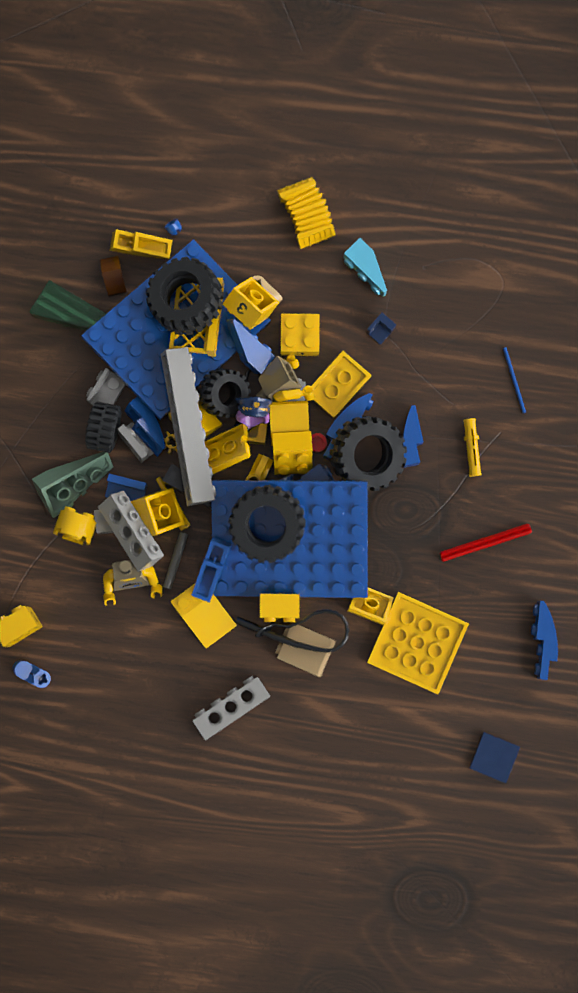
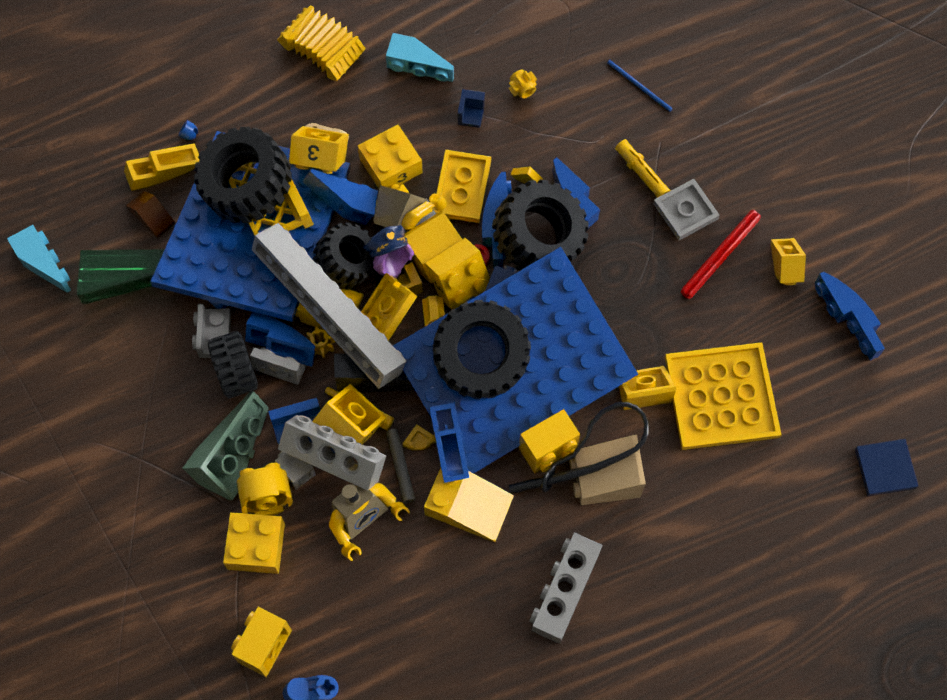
camera: 30 degrees left, 15 degrees down
(18, 261) = (34, 255): none -> medium azure slope
(50, 557) = (254, 543): none -> yellow brick
(198, 549) = (419, 439): none -> yellow tile
(388, 404) = (525, 174): none -> yellow tile
(429, 331) = (522, 83): none -> yellow gear
(483, 495) = (686, 209): none -> light grey plate
(527, 576) = (788, 261): none -> yellow slope

